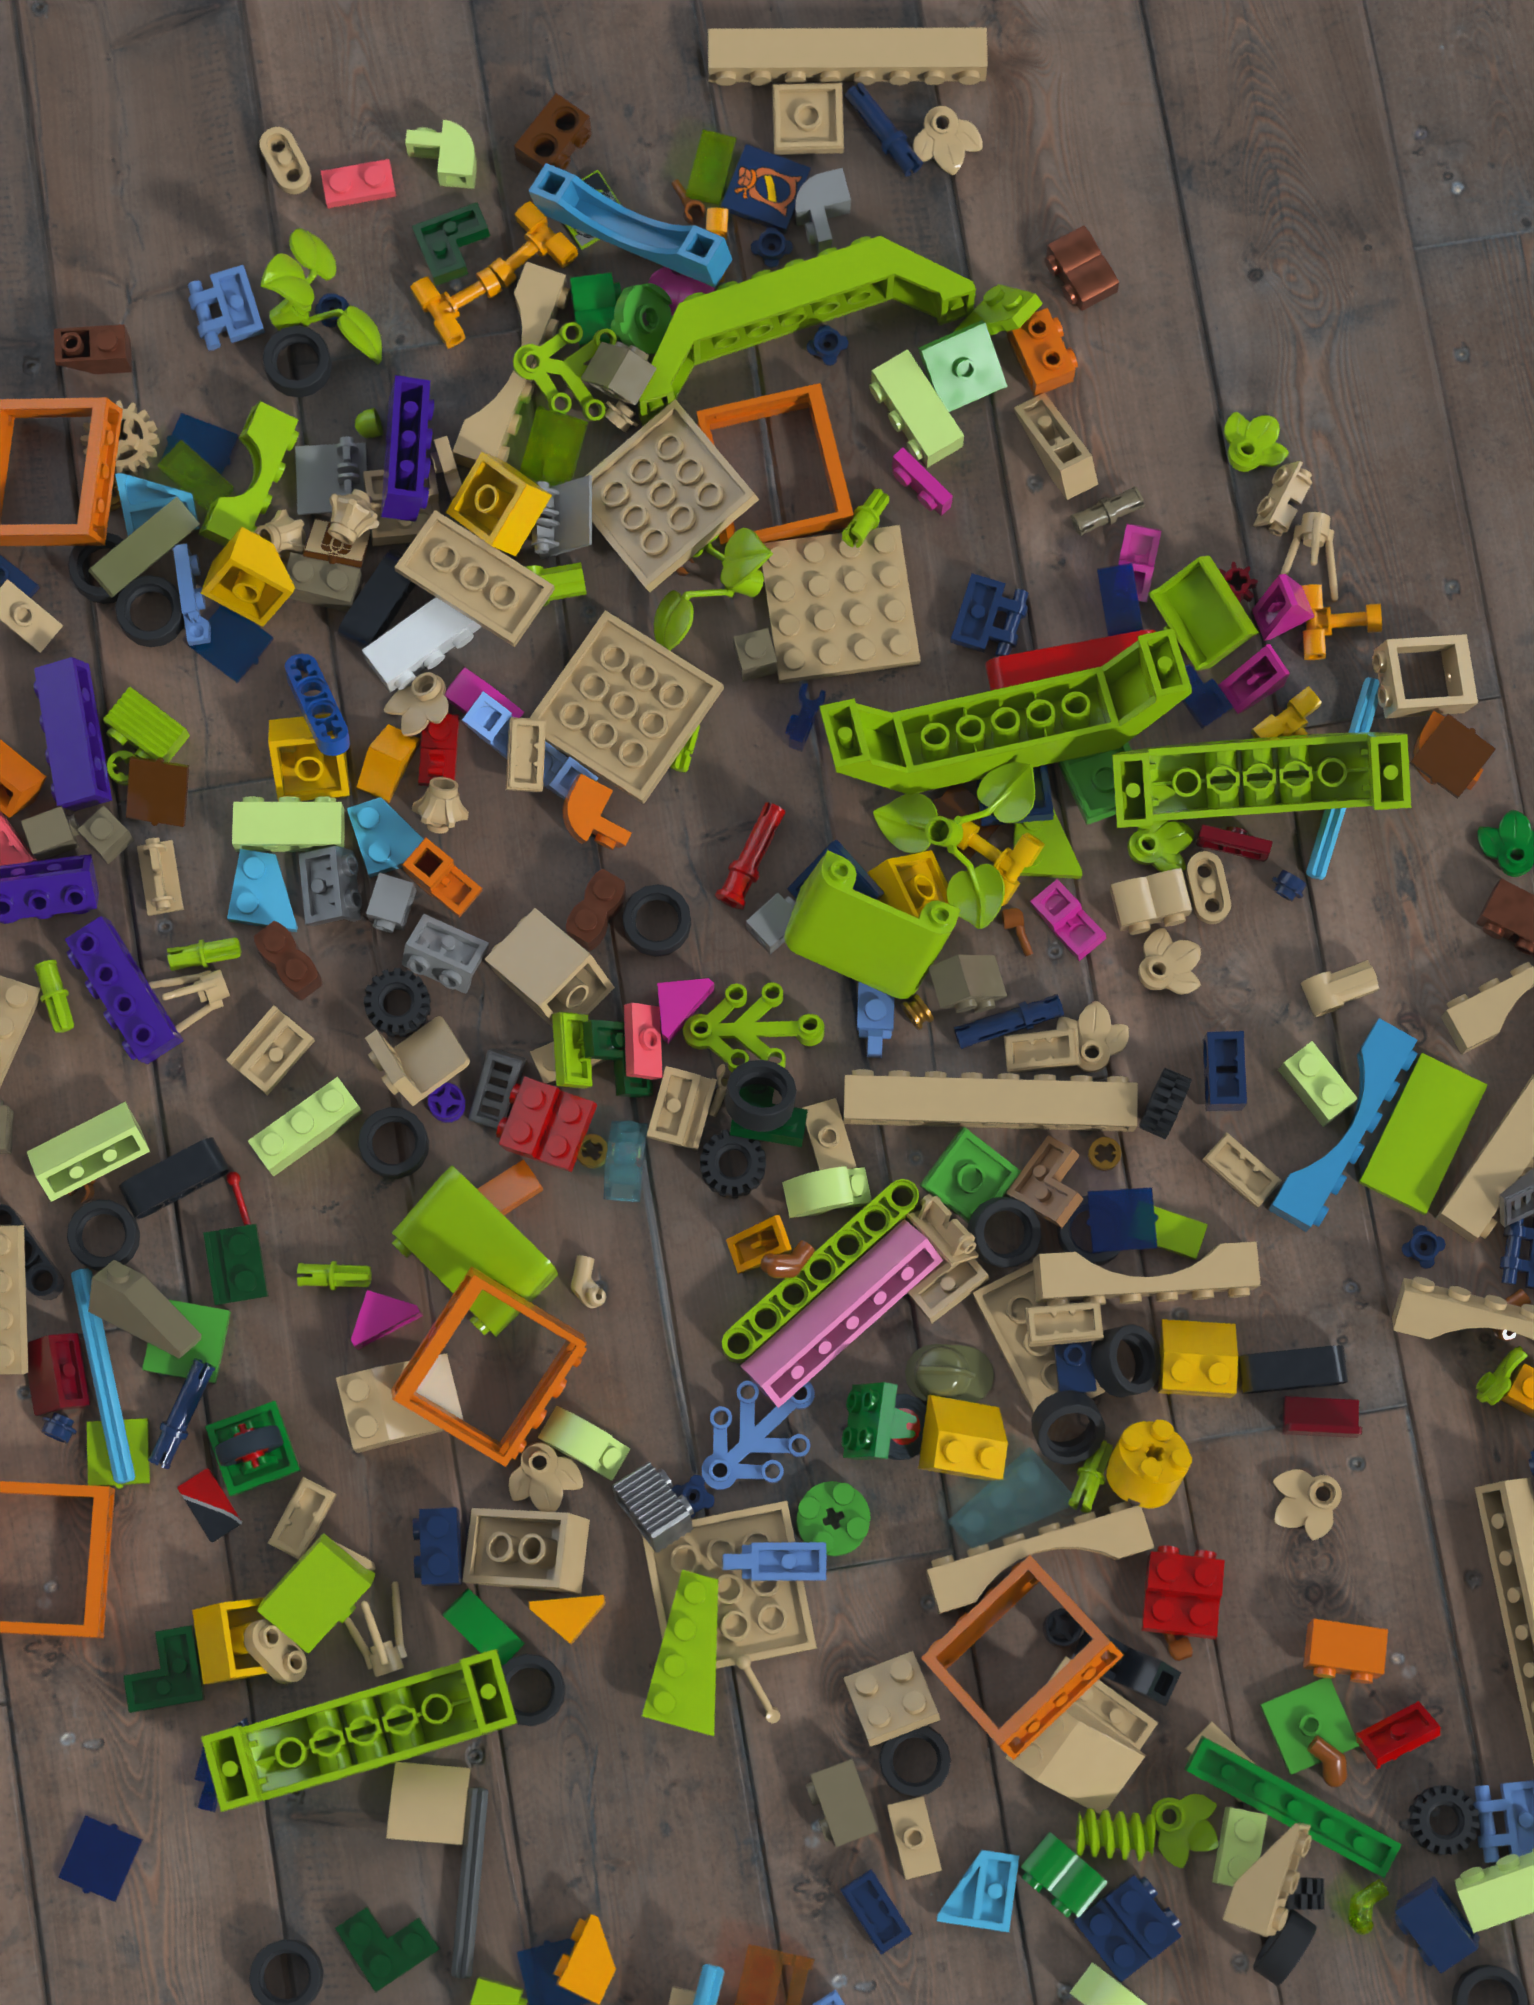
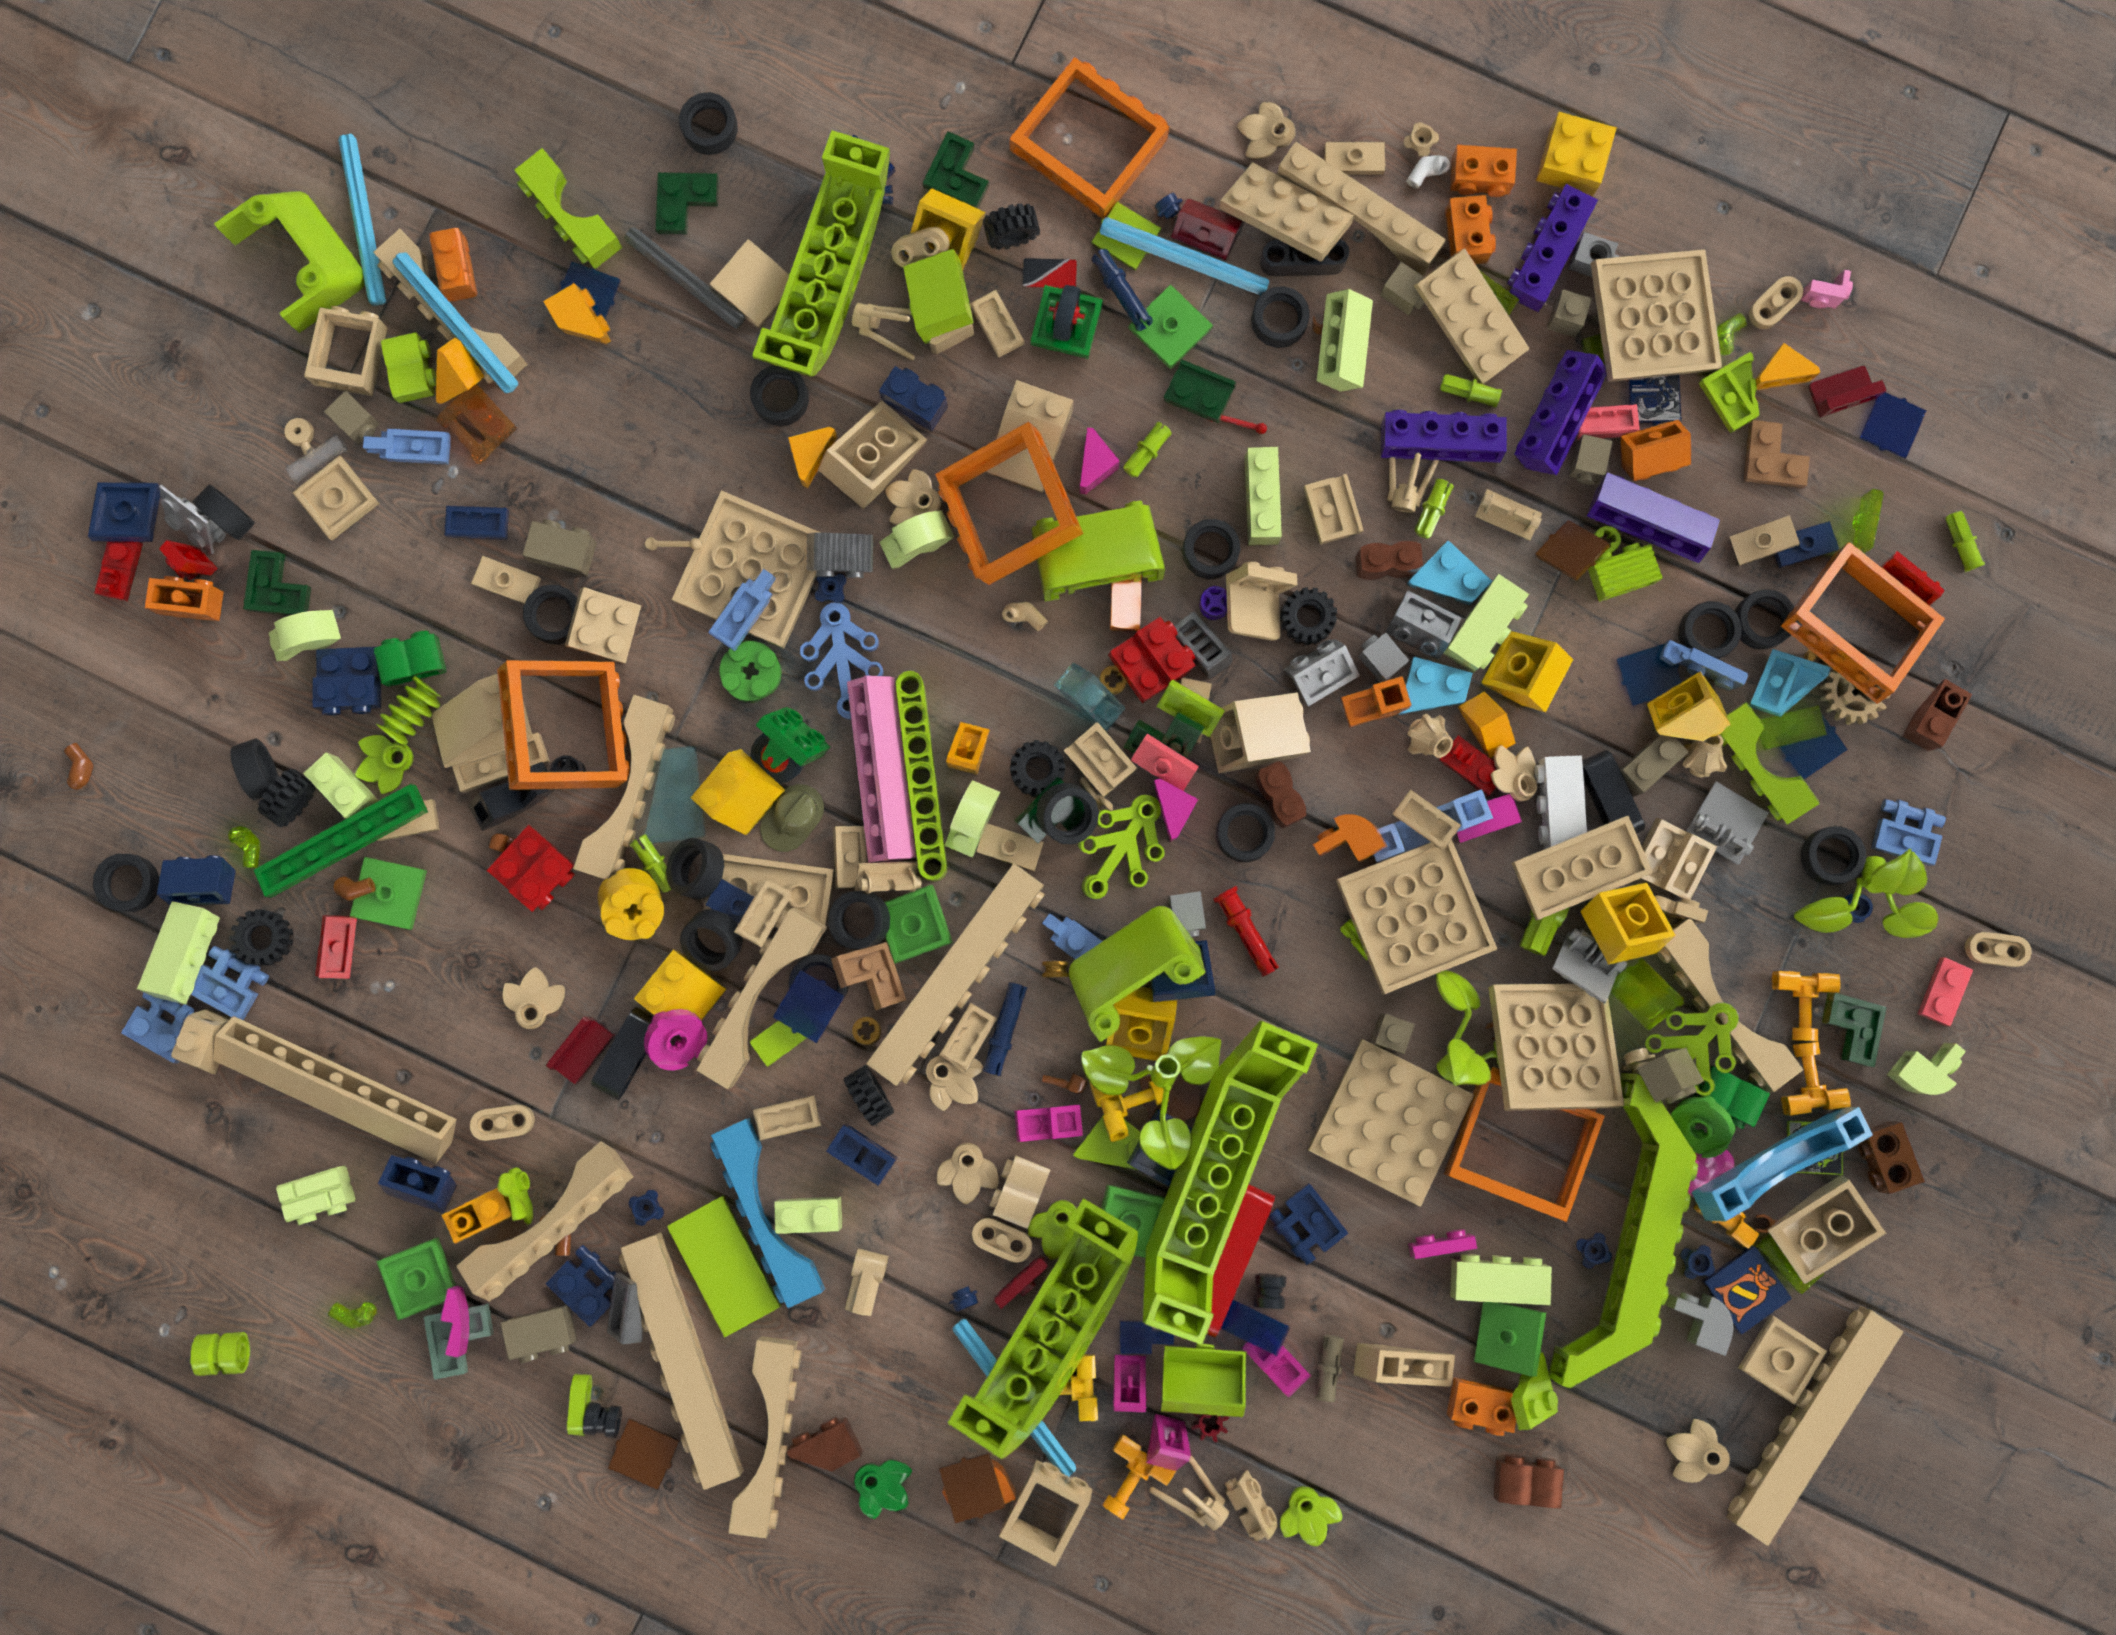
camera: 125 degrees right, 5 degrees up
(100, 1858) = (868, 59): clear blue piece -> none
(105, 834) = (1564, 495): dark tan brick -> none
(141, 1309) = (1209, 304): dark tan slope -> none
(144, 547) = (1760, 651): olive slope -> none
(174, 1178) = (1287, 388): black beam -> none
(191, 1570) = (1011, 226): none -> black tyre
(317, 704) = (1561, 696): blue beam -> none
(327, 548) = (1674, 792): piece -> none
(351, 516) = (1687, 812): tan rock -> none
(369, 423) = (1751, 876): lime hinge -> none
(406, 449) = (1718, 888): dark purple brick -> none
(482, 1626) = (840, 392): green slope -> none
(661, 152) = (1825, 1229): none -> tan slope
(685, 1669) = (718, 503): lime wing -> none
(787, 1264) = (936, 752): dark orange arm -> none
(801, 725) = (1318, 1030): clear blue plate -> none
(865, 518) = (1441, 1184): lime axle -> none
(892, 140) = (1725, 1411): dark blue pin -> none
(968, 982) = (1048, 1015): dark tan brick -> none
(984, 1893) = (437, 600): medium azure wing -> none
(1073, 611) = (1270, 1288): none -> black wheel
(1261, 1331) = (667, 1025): none -> dark pink plate
(1263, 1889) = (292, 773): tan slope -> none
(1345, 1650) = (414, 951): orange brick -> none
(1445, 1444) = (503, 1122): none -> tan plate

